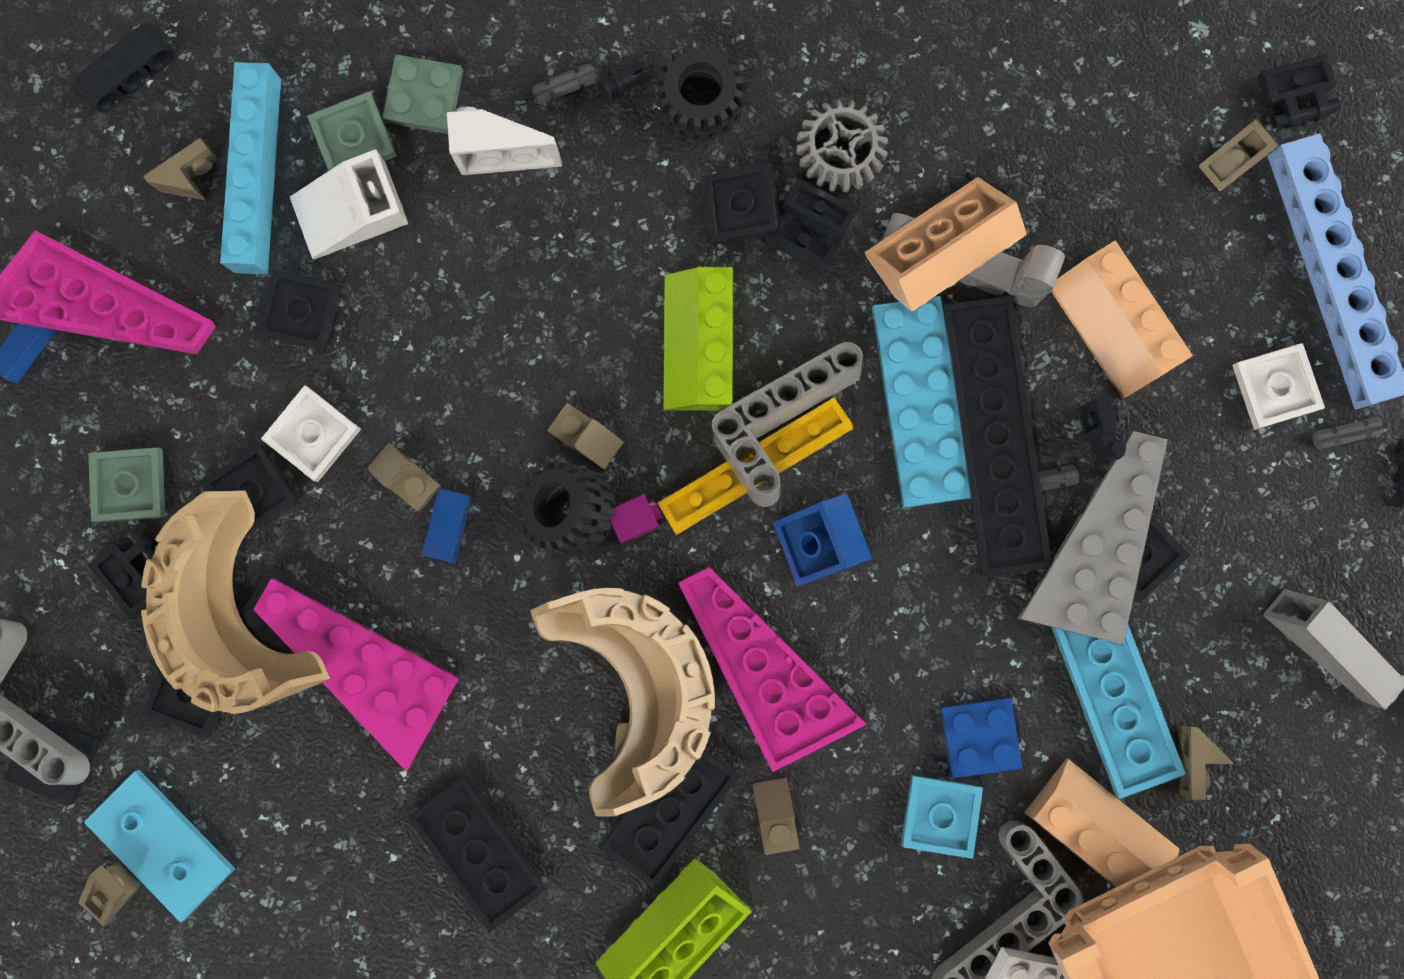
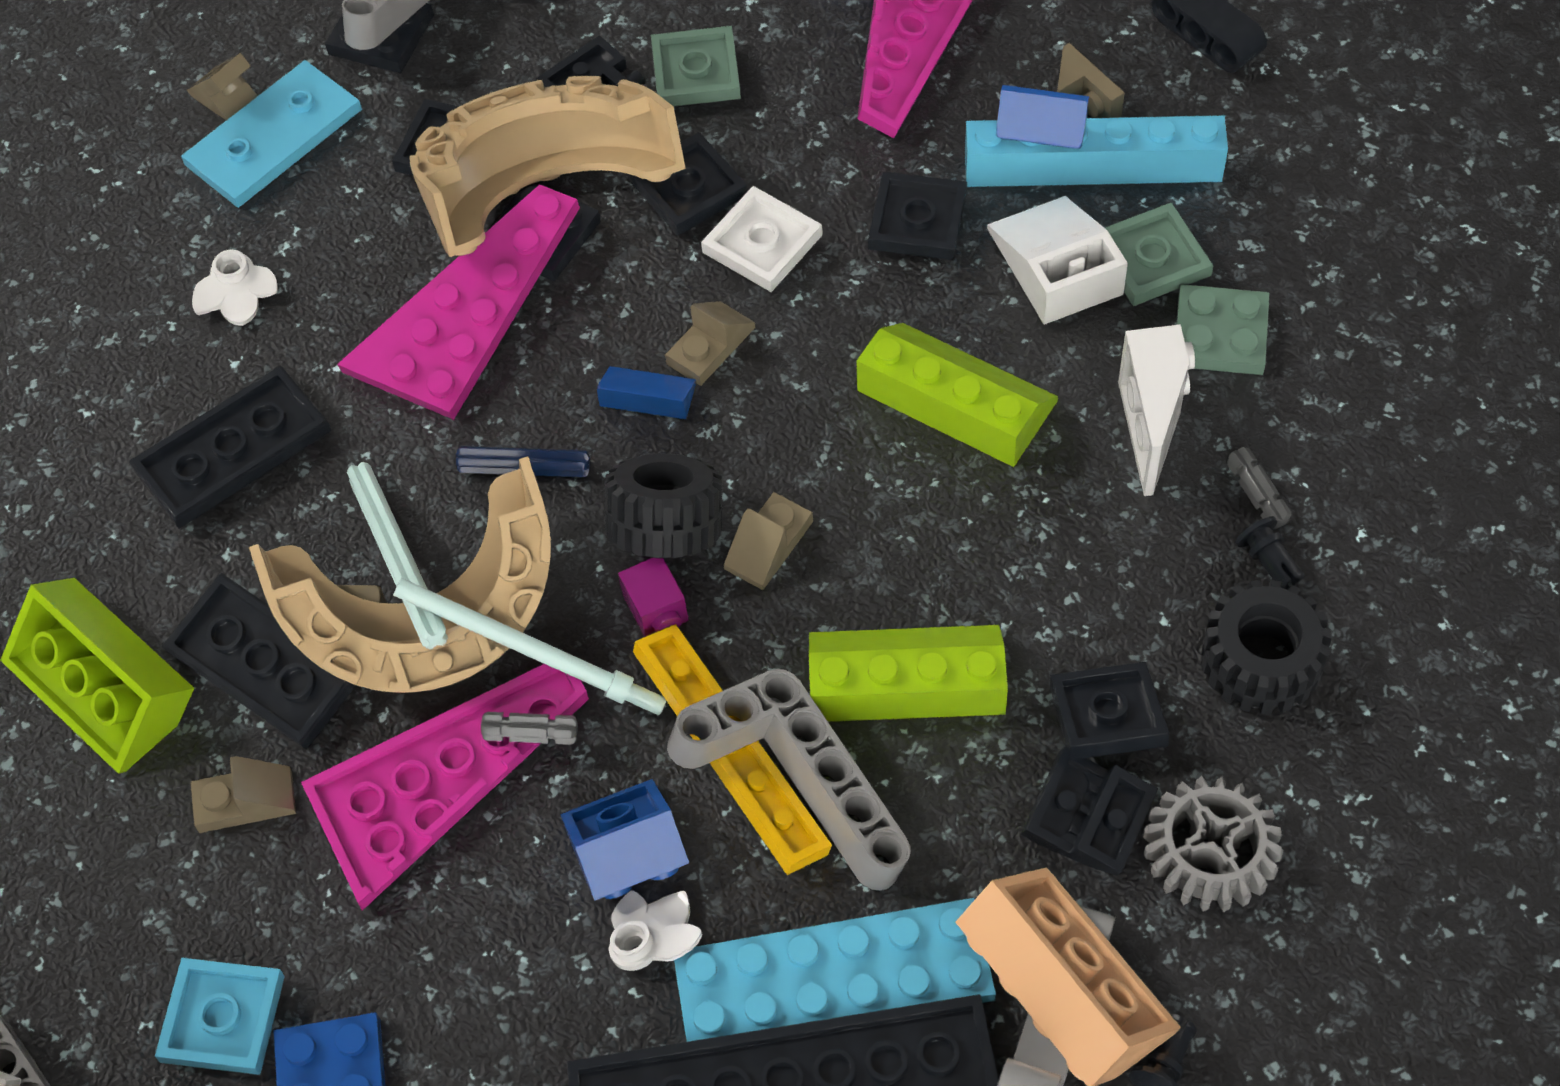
camera: 90 degrees right, 25 degrees down
(233, 199) = (1042, 116): none -> slope
(327, 863) = (236, 292): none -> white plate
(465, 291) = (953, 391): none -> lime slope
(505, 620) = (505, 460): none -> dark blue axle
(595, 710) = (394, 550): none -> light aqua axle
(705, 546) = (616, 685): none -> light aqua bar
(742, 606) = (529, 728): none -> axle
(884, 516) = (656, 928): none -> white plate

